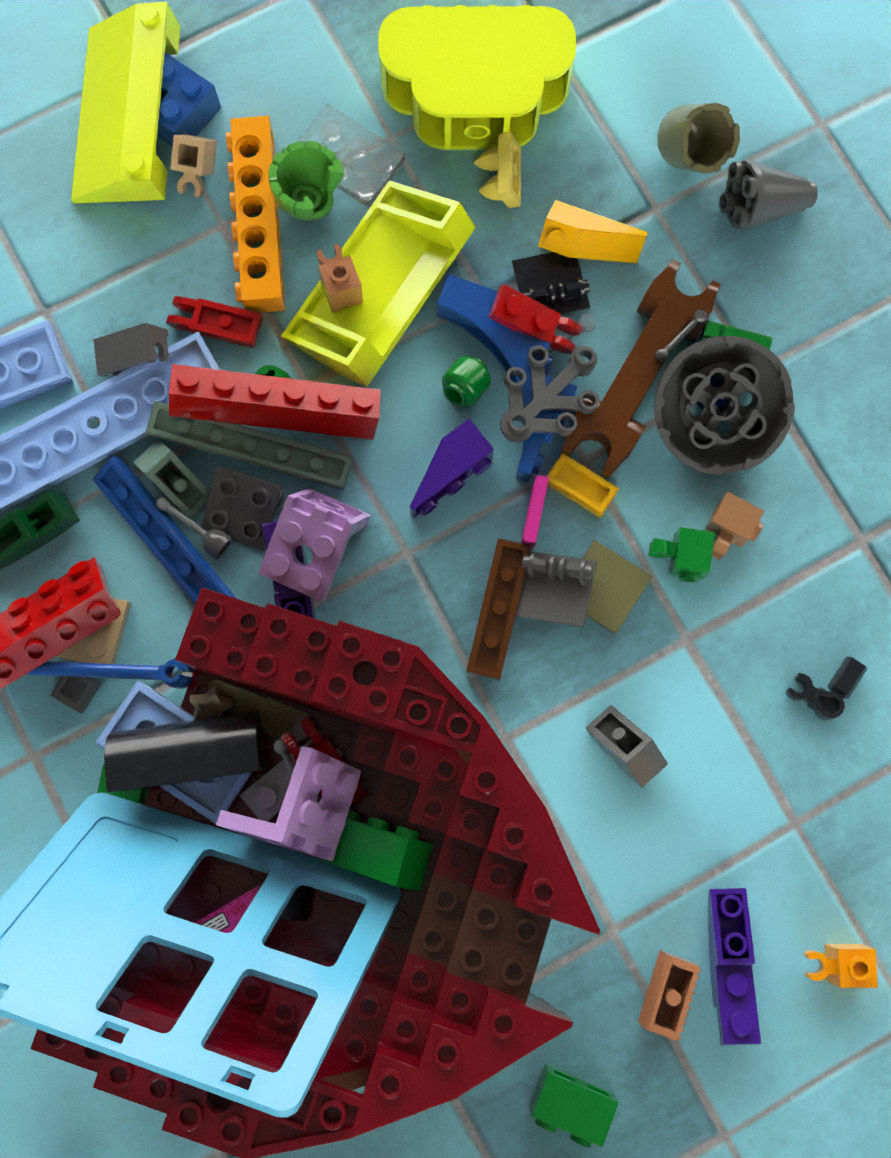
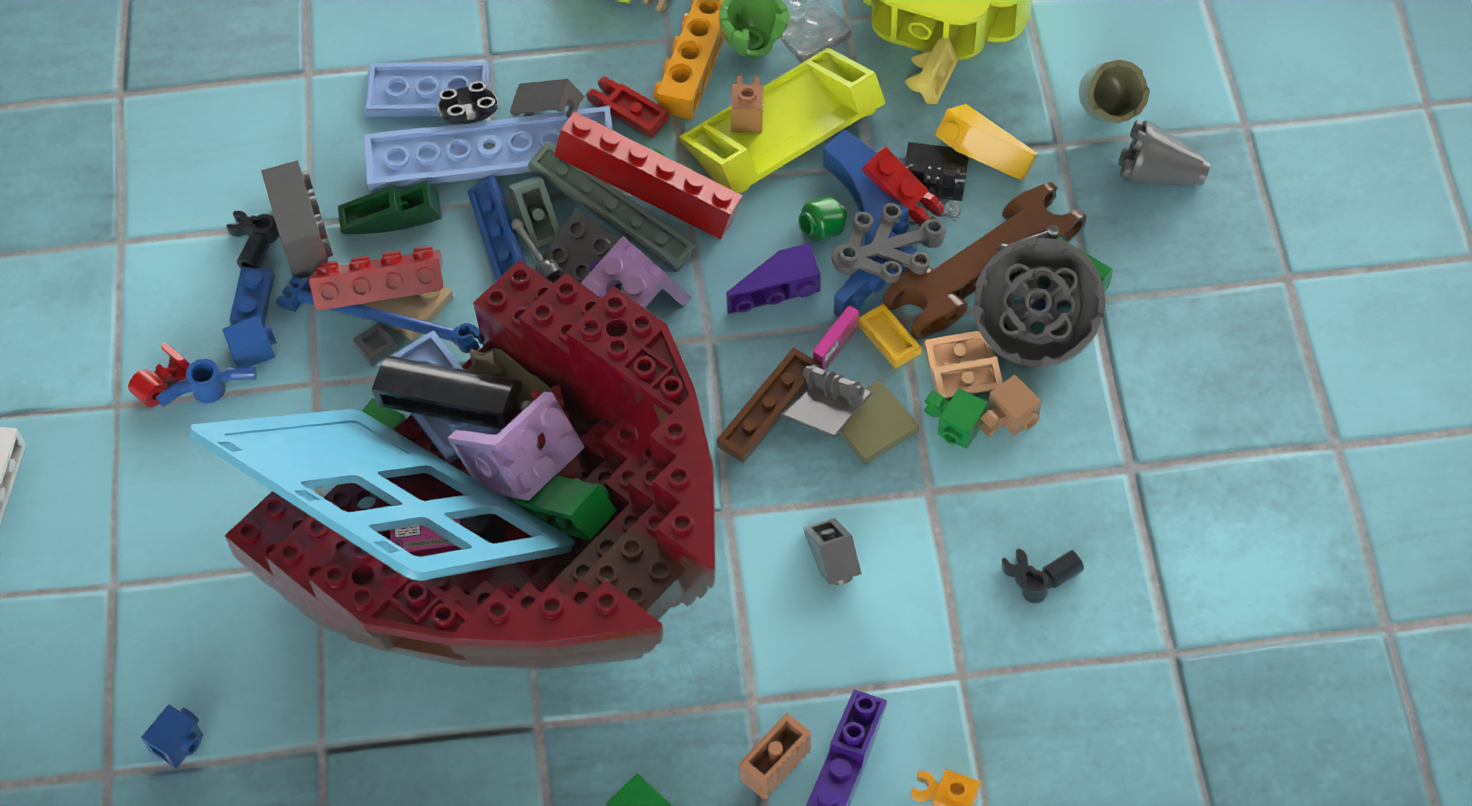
camera: 25 degrees right, 20 degrees down
(50, 382) = (467, 104): none -> black dish
(665, 493) = (962, 363): none -> light nougat slope

